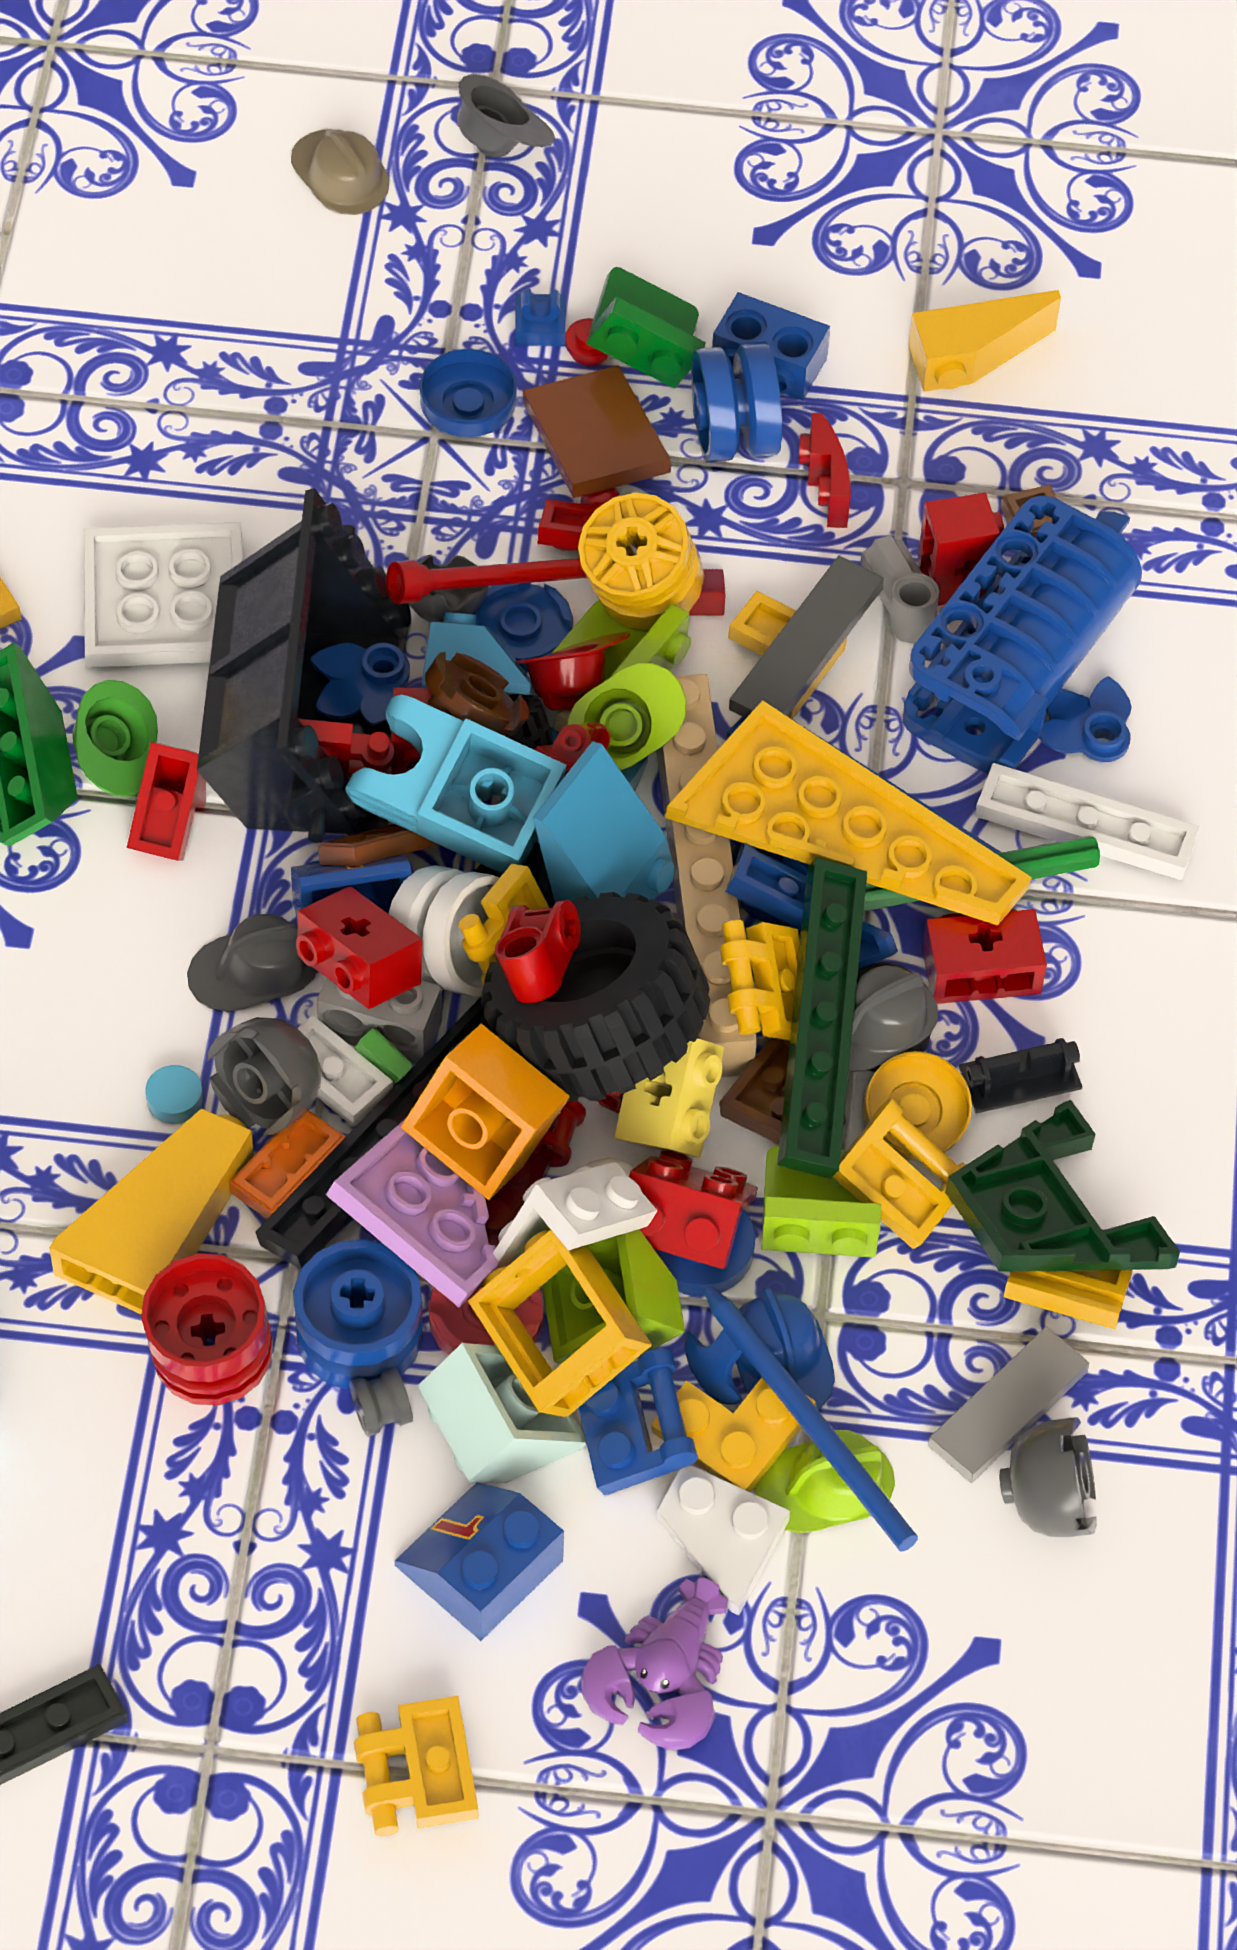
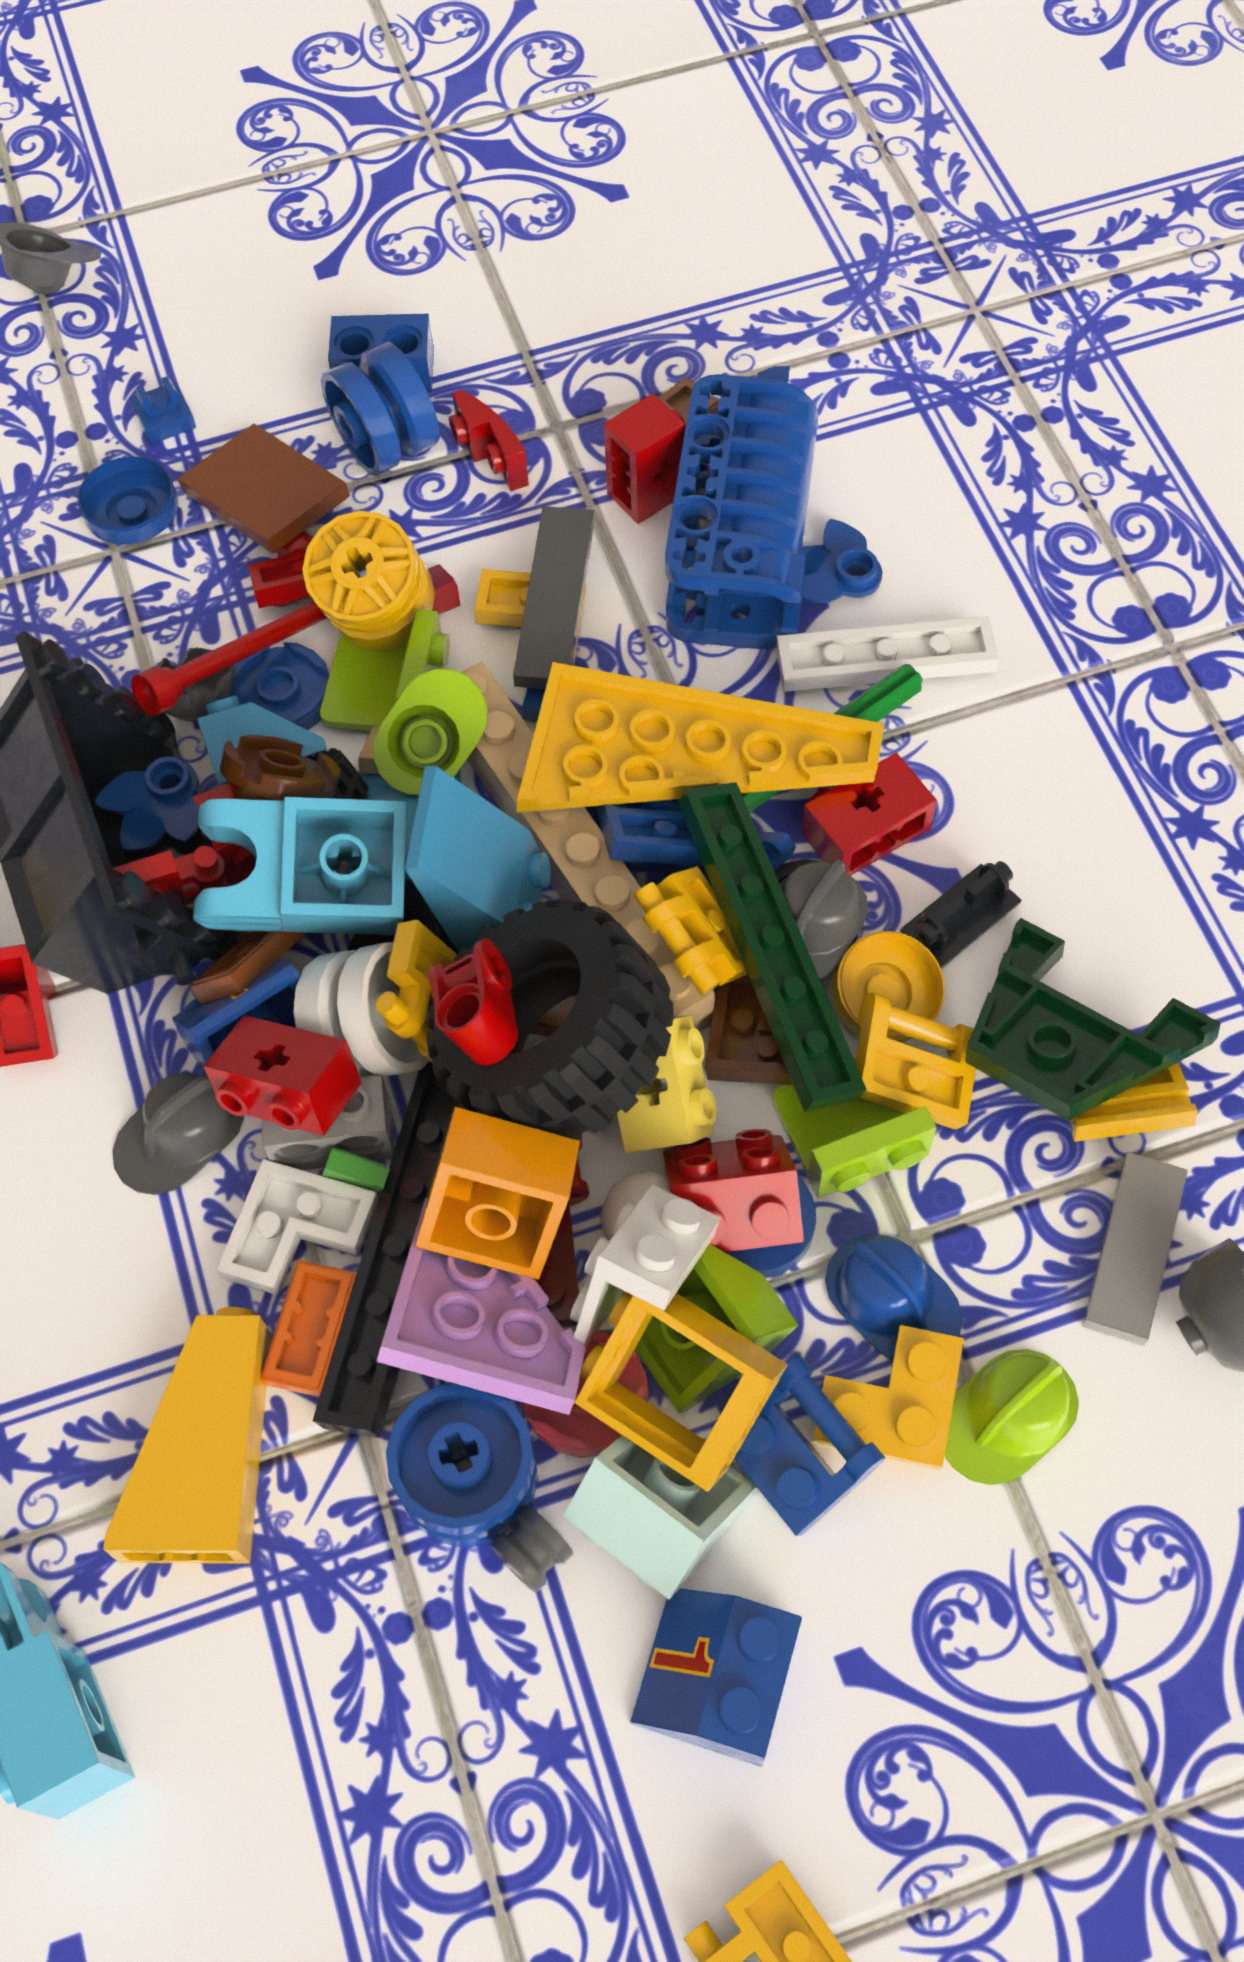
camera: 20 degrees left, 5 degrees up
(174, 1094) = (158, 1304): medium azure tile -> none
(203, 1300) = (278, 1554): red wheel -> none
(265, 1073) = (247, 1249): dark grey cylinder -> none
(570, 672) = (352, 711): red piece -> none
(573, 742) = (401, 779): red hinge -> none
(576, 344) = (217, 413): red plate -> none
(645, 327) = (264, 380): green bracket -> none
(664, 1665) = (971, 1710): medium lavender animal -> none
(713, 1371) = (843, 1350): blue piece -> none
(722, 1530) = (943, 1520): white wing -> none
(906, 591) = (619, 518): light grey piece -> none
(973, 339) = (552, 283): yellow slope -> none

